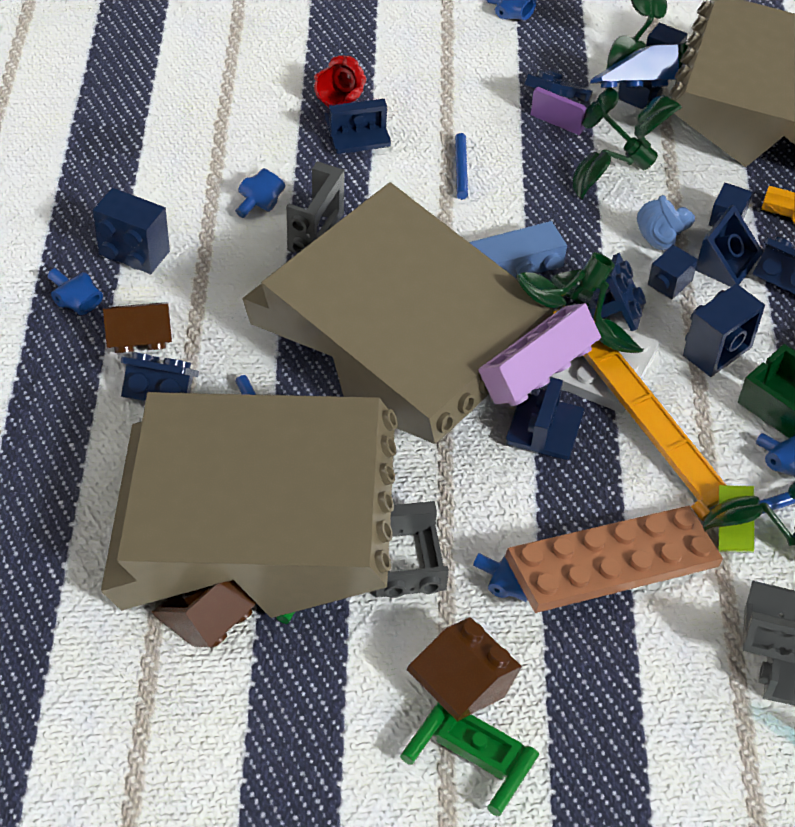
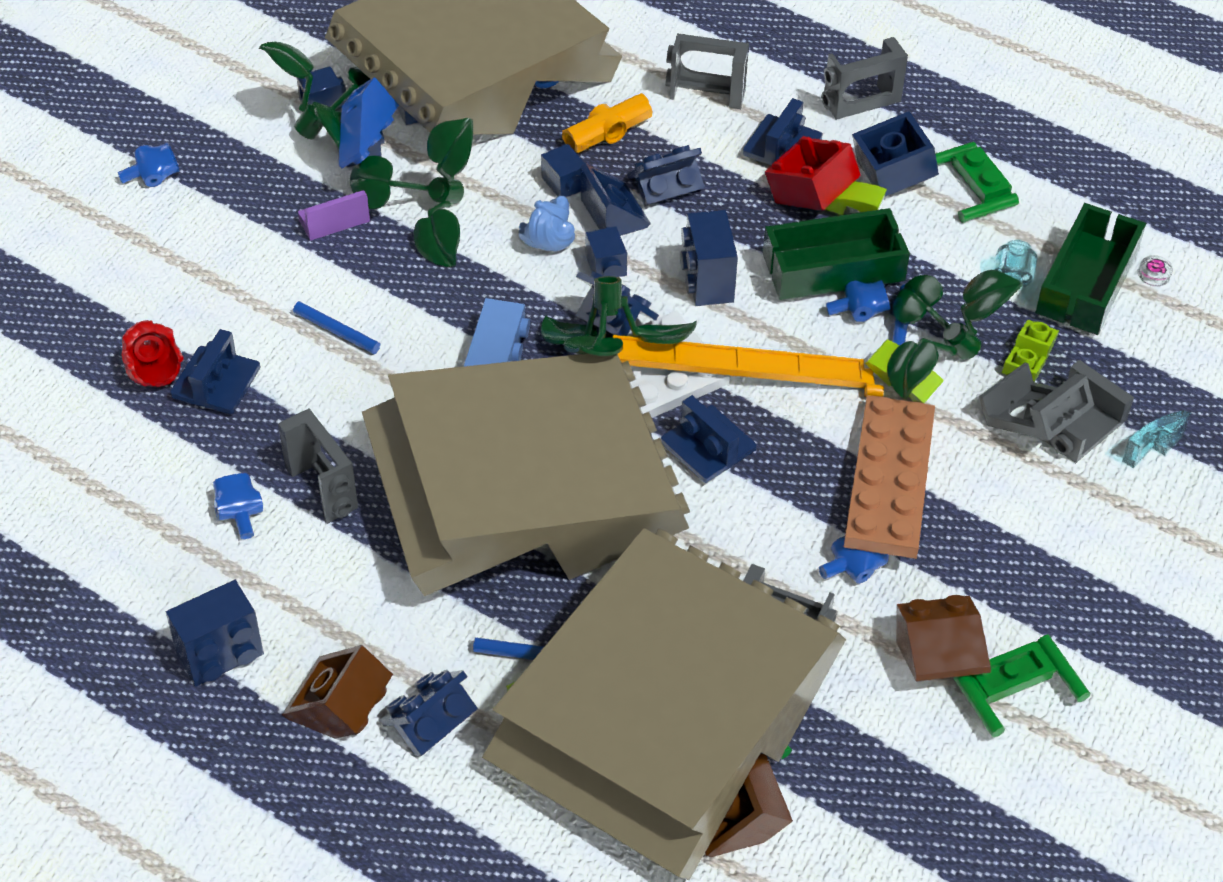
camera: 55 degrees left, 0 degrees up
(75, 293) = (243, 729): blue piece -> none
(540, 354) = (664, 390): lavender brick -> none
(554, 82) = (295, 199): dark blue wing -> none

